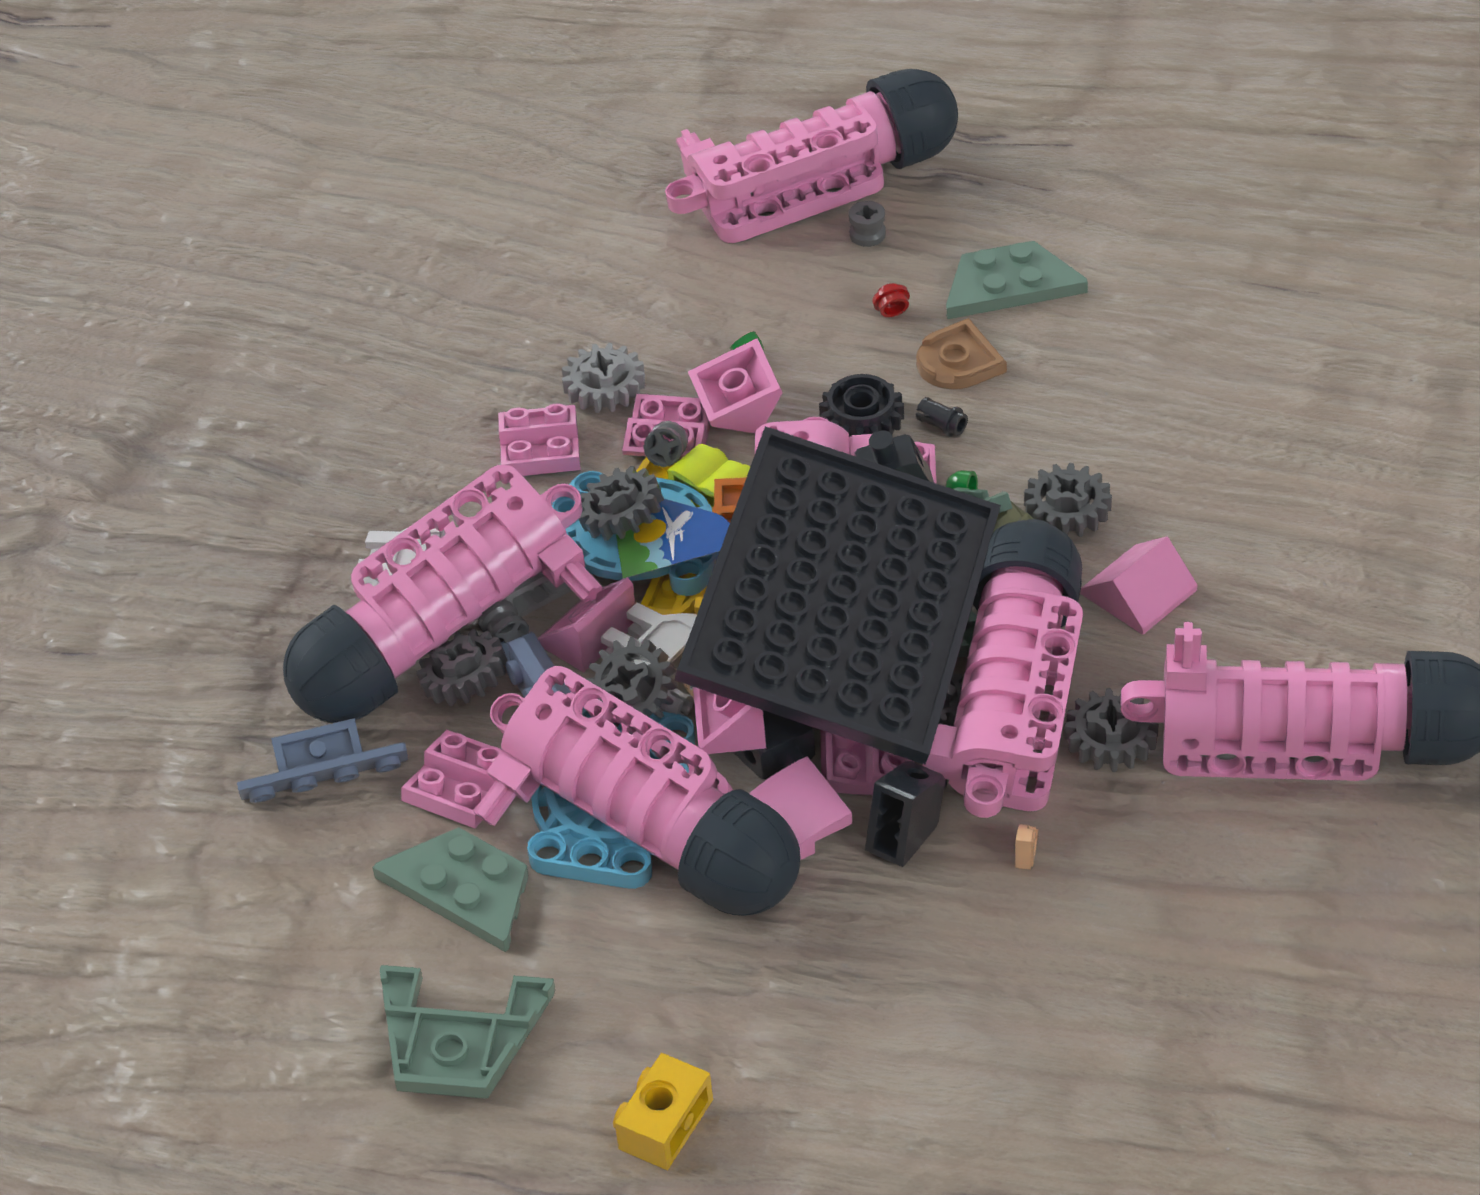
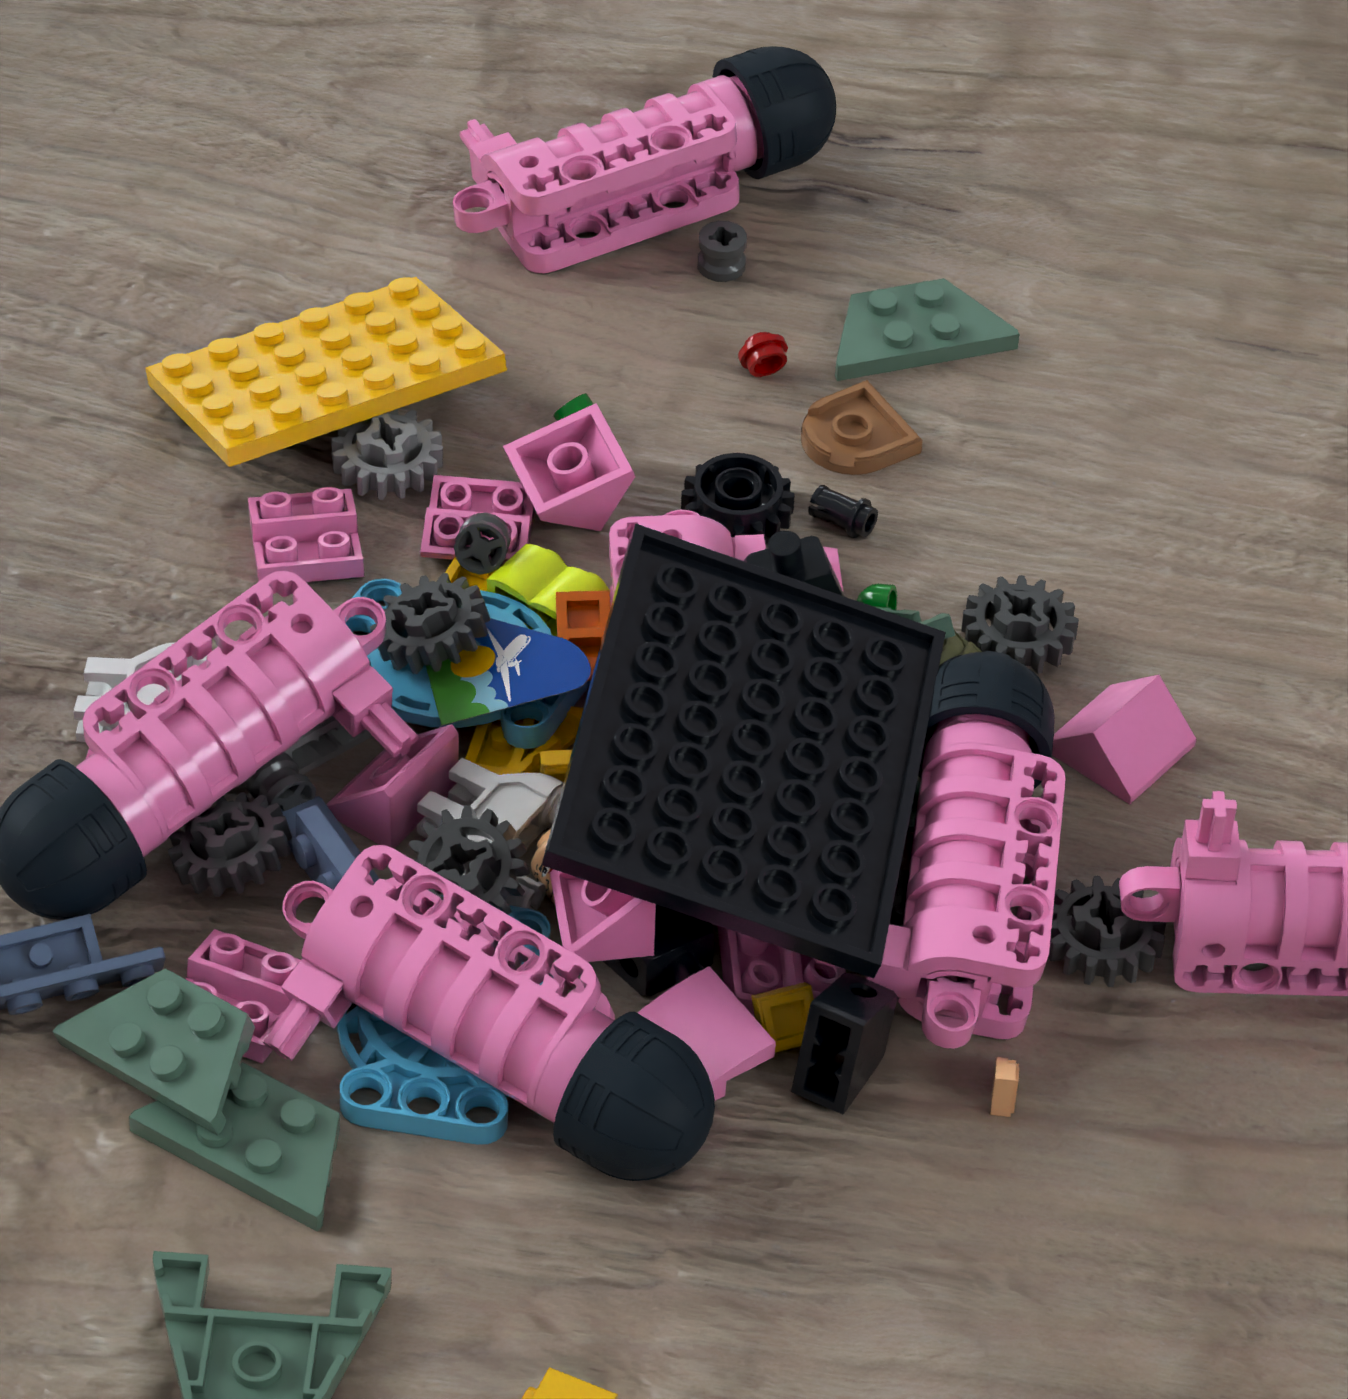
camera: 10 degrees left, 0 degrees up
(403, 813) = (166, 1043): none -> sand green wing
(561, 317) = (324, 370): none -> yellow plate
(858, 792) = (784, 1013): none -> yellow tile

